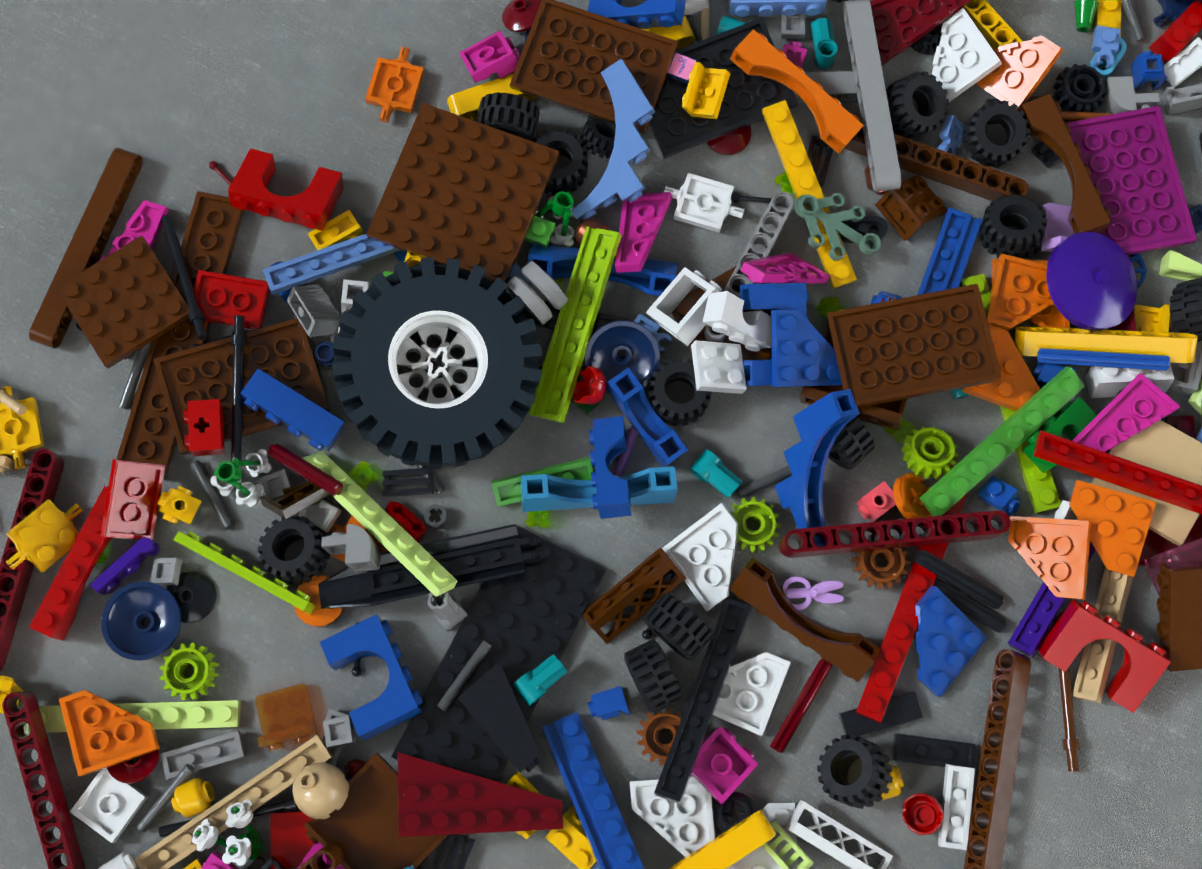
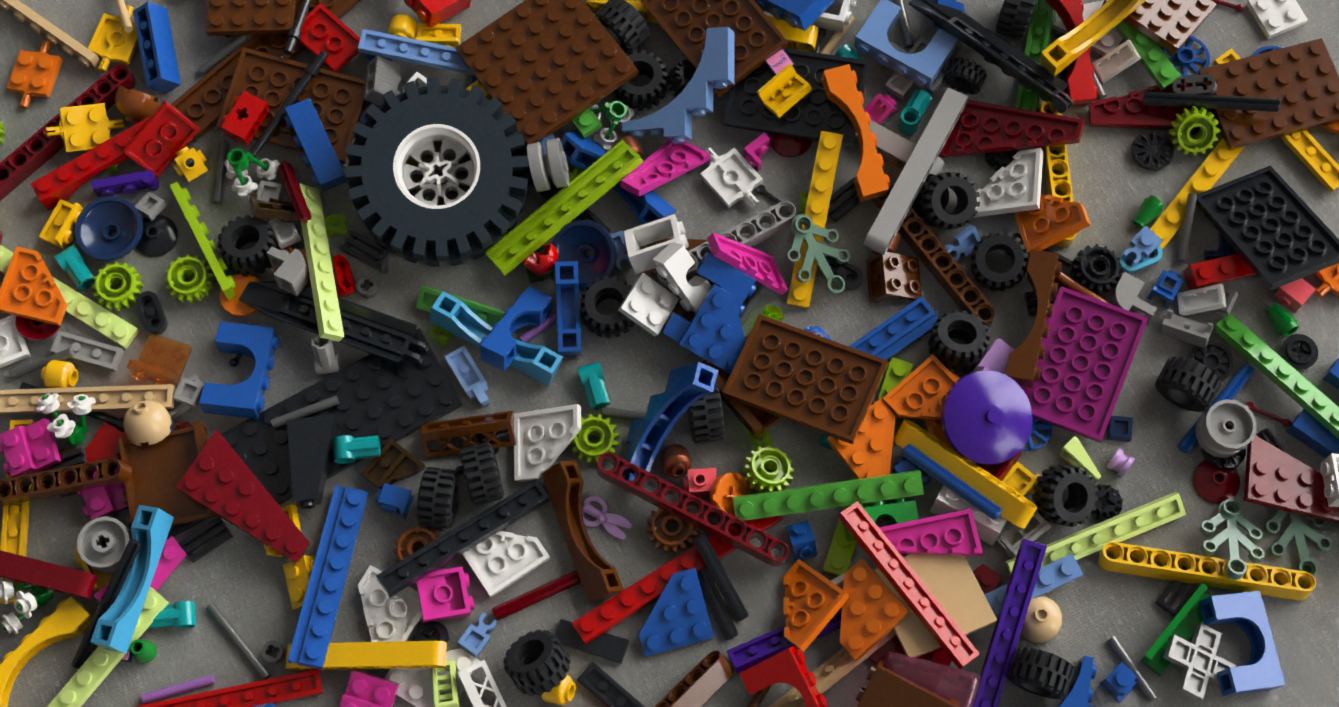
camera: 35 degrees right, 5 degrees down
(62, 411) = (156, 47): none -> blue brick
(80, 481) = (135, 104): none -> dark orange cylinder
(88, 646) = (61, 224): none -> yellow bracket
(126, 677) = (73, 264): none -> teal piece
(241, 678) = (151, 314): none -> black plate
(242, 618) = (181, 270): none -> lime gear
(295, 245) = (402, 26): none -> yellow head
(583, 673) = (392, 465): none -> dark brown wing
(592, 539) = (468, 375): none -> light blue hinge
(708, 165) = (756, 148): none -> dark pink bracket
(775, 784) = (475, 637): none -> medium blue plate
(841, 497) = (675, 461): none -> copper head

